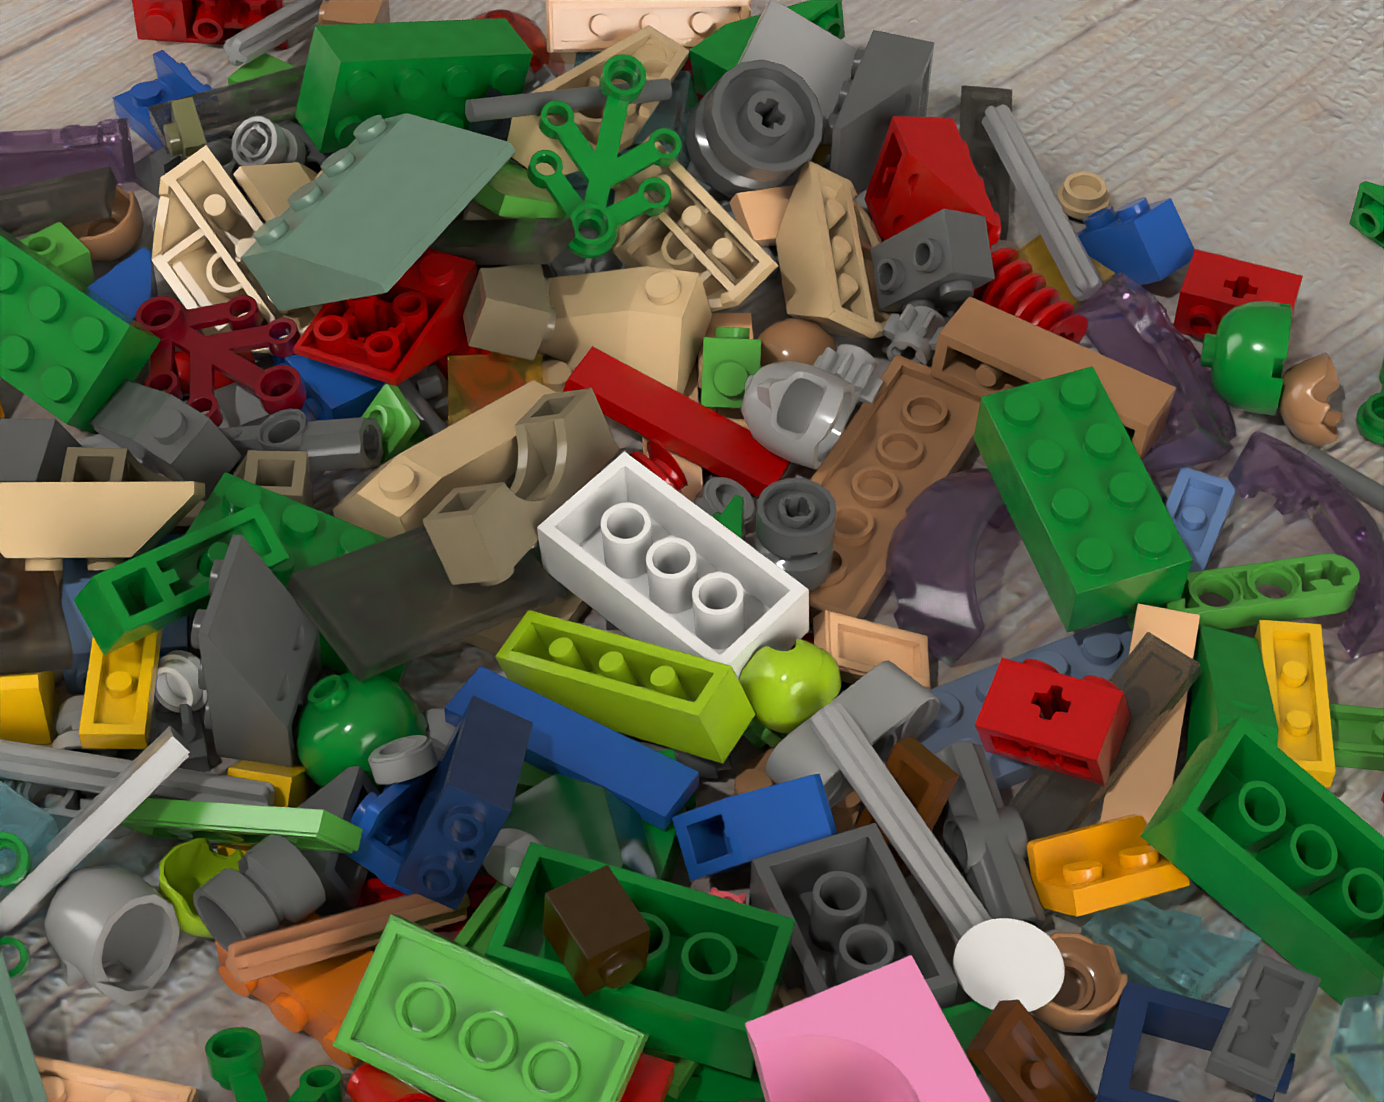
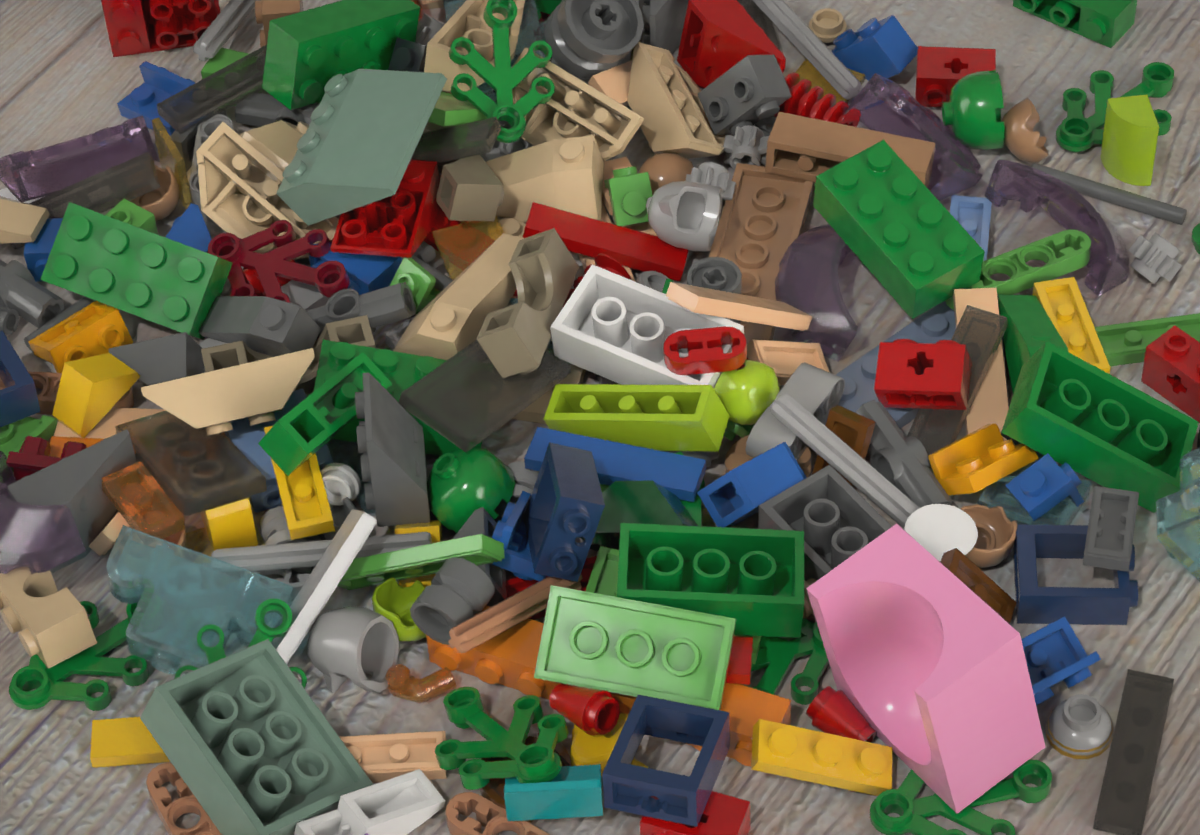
camera: 10 degrees left, 0 degrees up
(142, 183) = (171, 157): none -> clear yellow piece
(183, 1011) = (418, 689): none -> clear orange arm
(185, 132) = (197, 117): olive plate -> none
(265, 142) = (260, 114): light grey wheel -> none
(402, 759) = (511, 495): light grey tile -> none
(507, 854) = (606, 541): light grey tile -> none
(576, 98) = (444, 41): dark grey bar -> none
(596, 931) = (686, 564): dark brown brick -> none
(739, 613) = (705, 350): none -> red beam
(814, 558) = (738, 306): none -> light nougat tile
(1185, 932) = (1045, 486): none -> blue bracket

